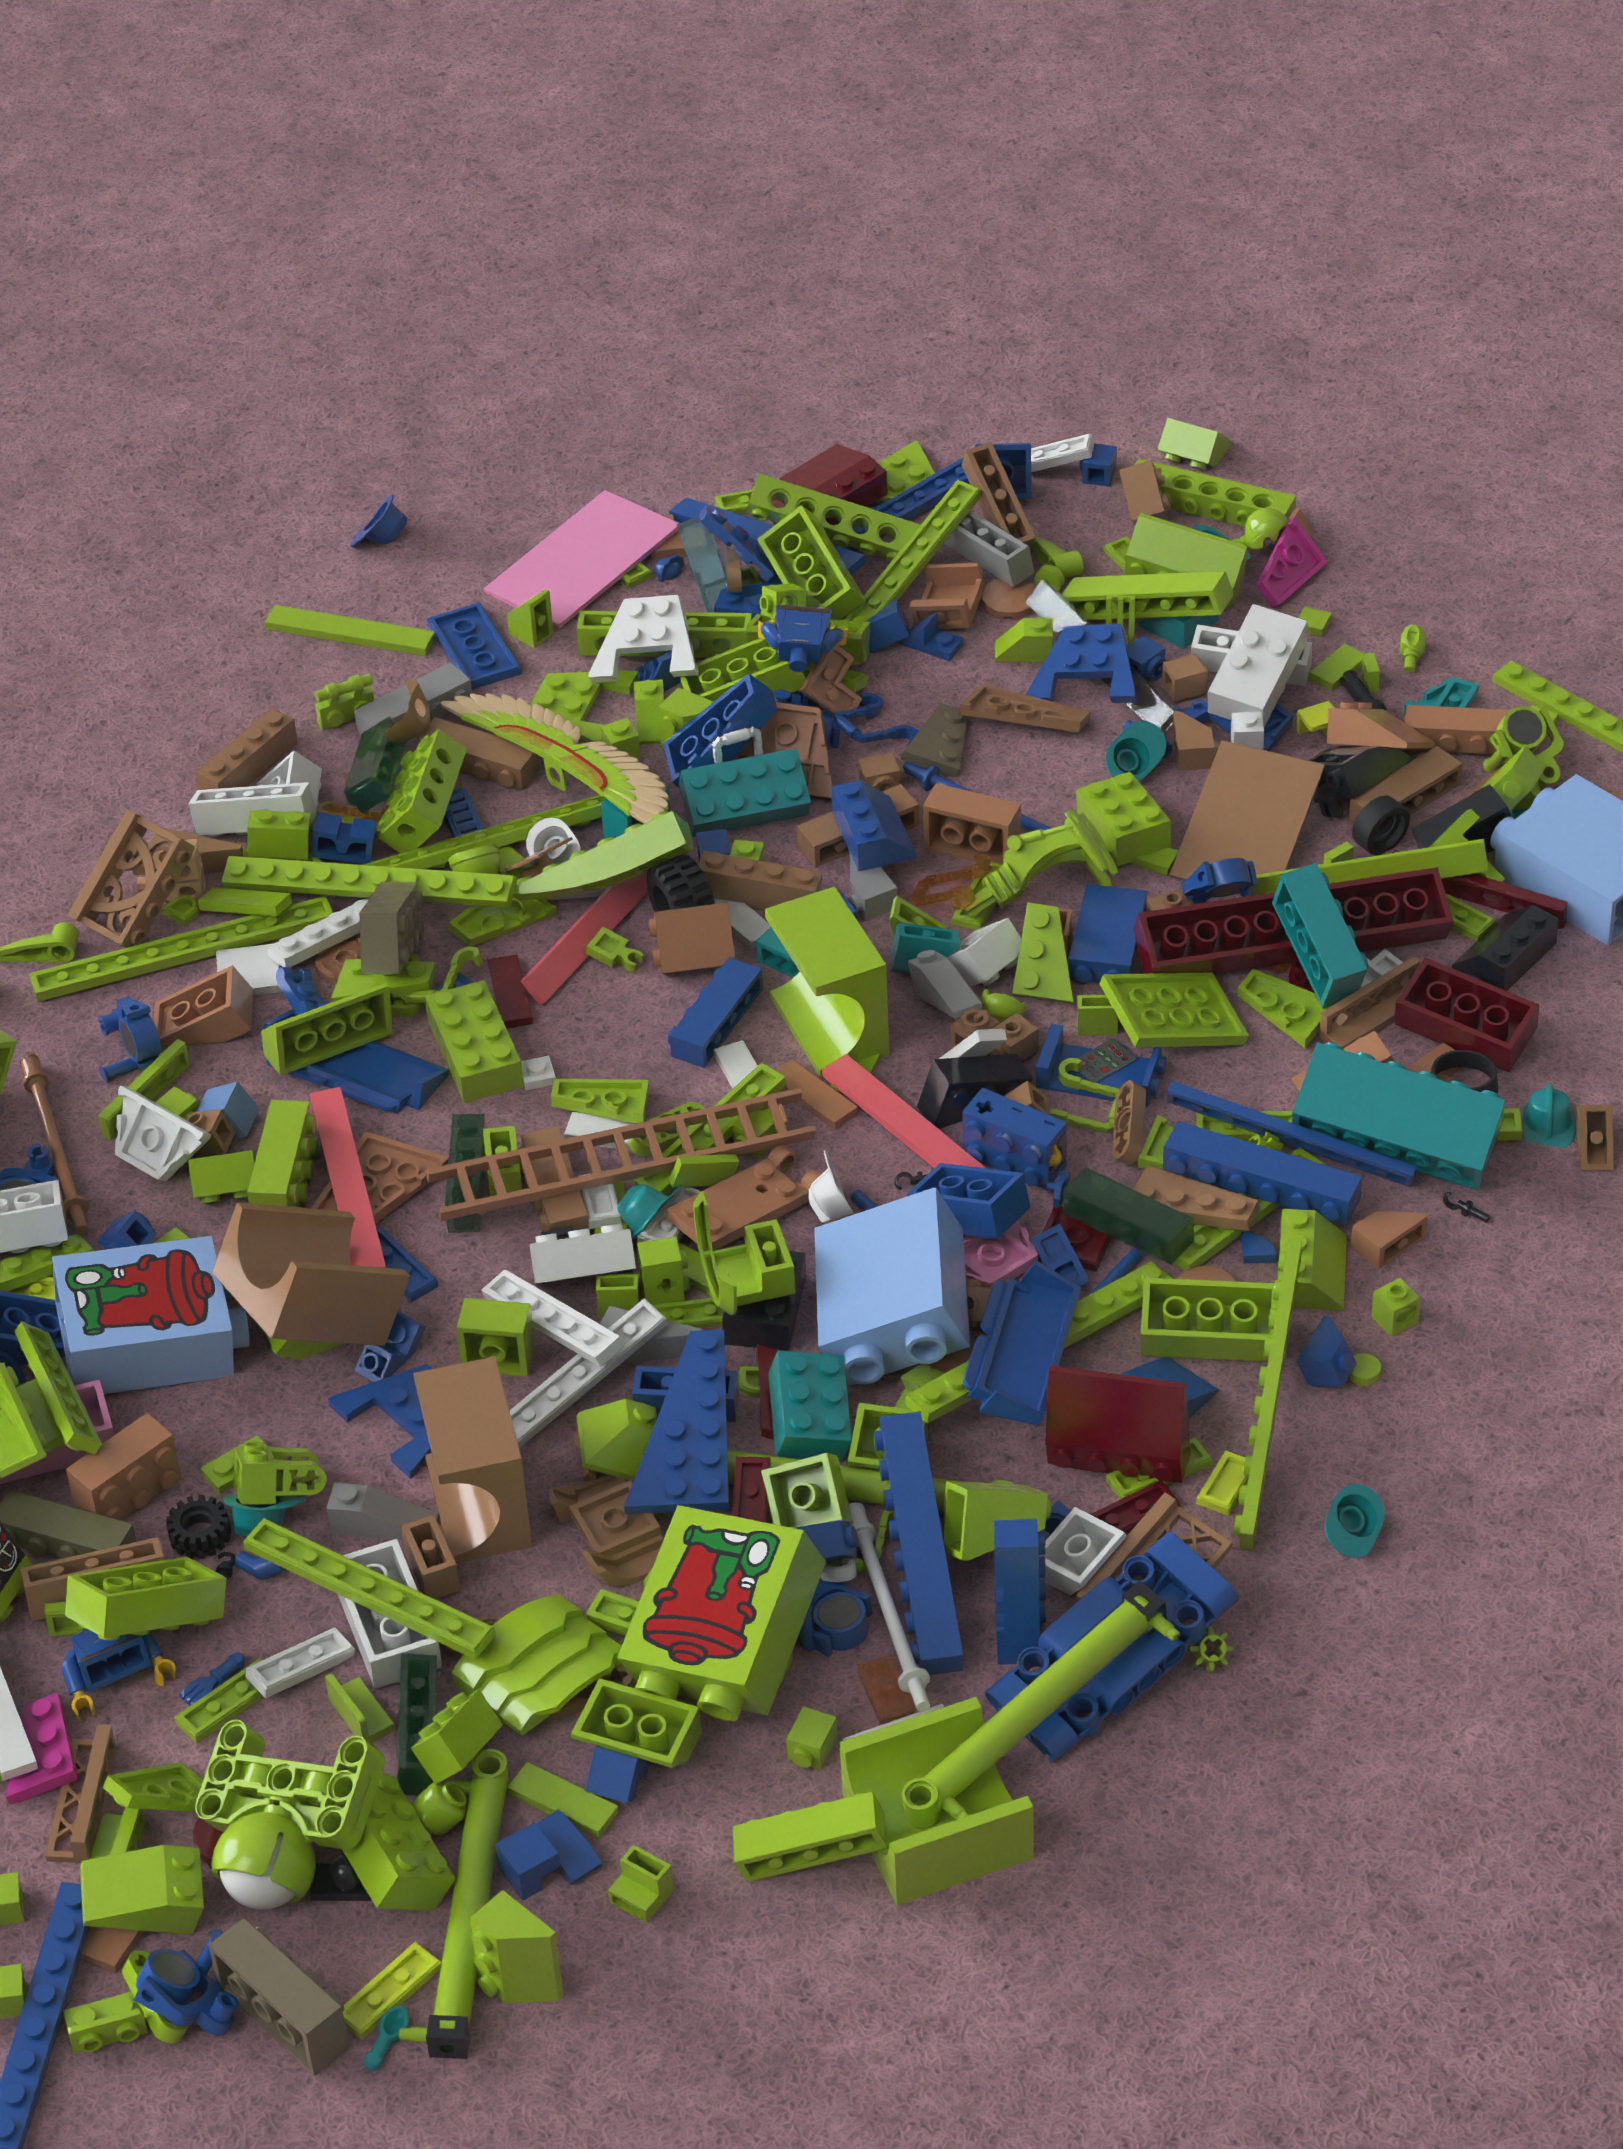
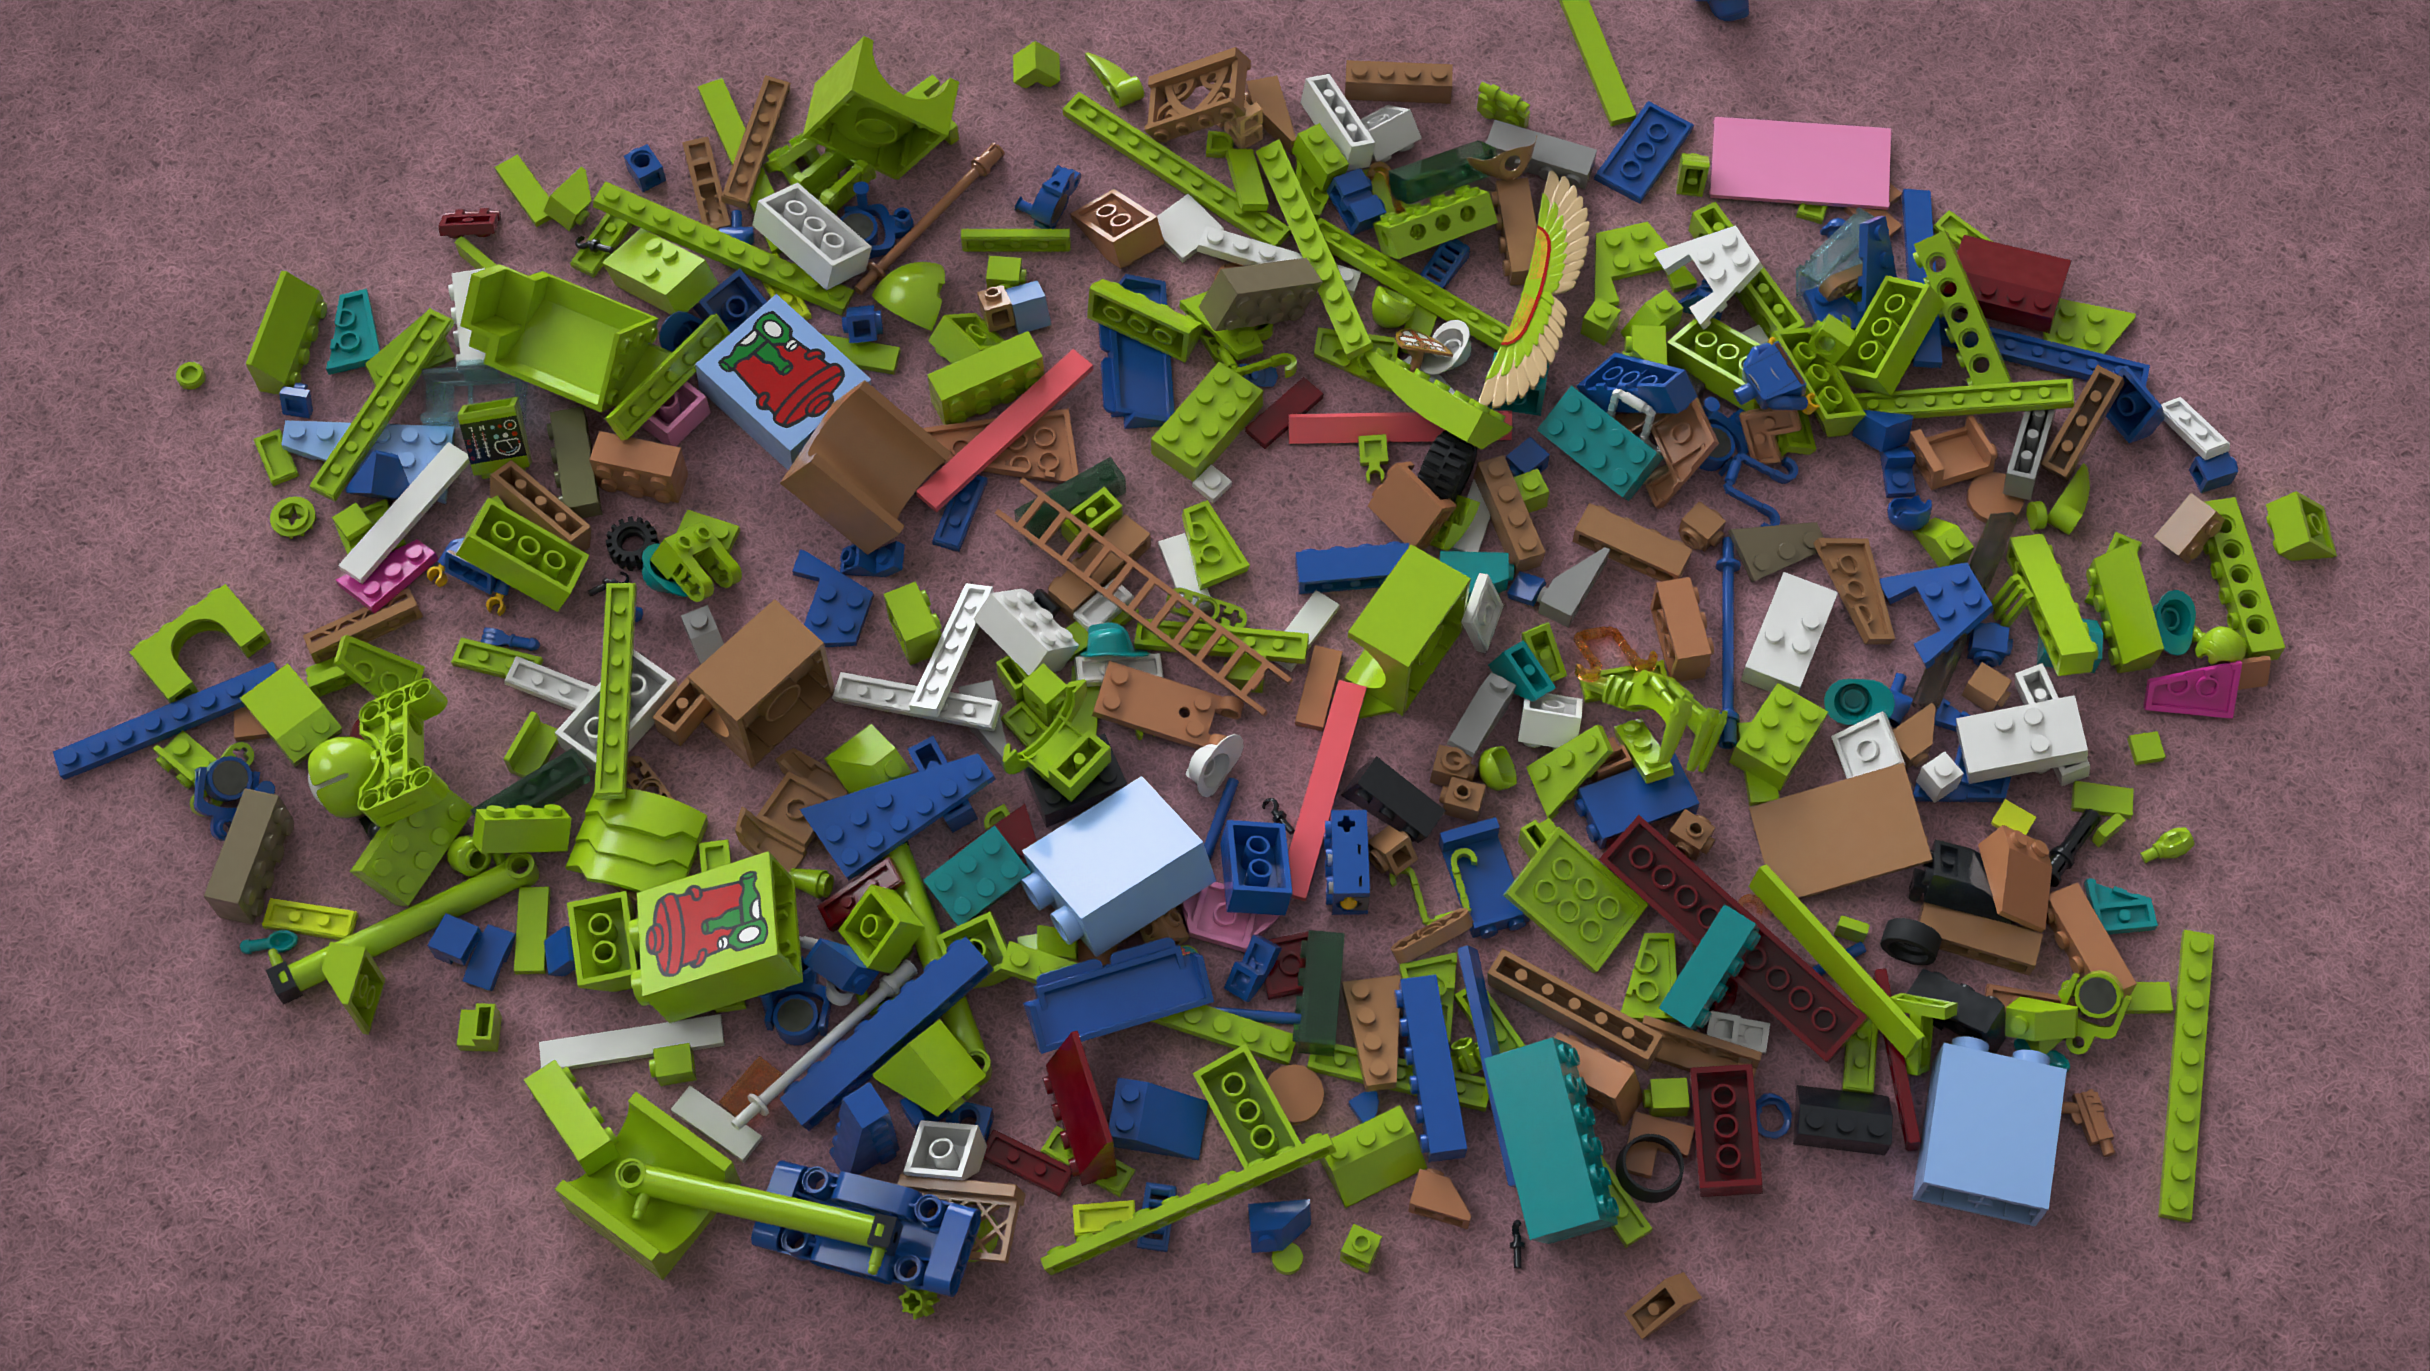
camera: 55 degrees right, 20 degrees up
(131, 1182) = (913, 292): none -> lime brick
(154, 1136) = (966, 275): white wing -> none
(299, 989) = (1179, 279): blue plate -> none
(703, 1170) = (1174, 660): lime tile -> none
(741, 923) = (1456, 524): none -> lime slope
(754, 1772) = (631, 1042): none -> white tile
(870, 826) = (1618, 558): blue slope -> none
(978, 1044) = (1412, 776): white tile -> none
(981, 649) = (1909, 513): none -> blue hair
(1031, 768) = (1789, 634): none -> white brick
(1062, 1181) = (1328, 924): blue piece -> none
(1079, 898) = (1643, 750): none -> lime plate
(1105, 1060) = (1493, 874): dark grey sticker -> none
(1180, 770) = (1867, 746): none -> white tile
(1220, 880) = (1736, 859): blue piece -> none
(1237, 1427) = (1163, 1191): none -> blue slope
(1278, 1054) = (1575, 1009): none -> medium nougat brick
(1354, 1520) = (1105, 1338): teal piece -> none
(1406, 1041) = (1667, 1097): none -> lime brick
(1549, 1118) = (1663, 1257): teal piece -> none

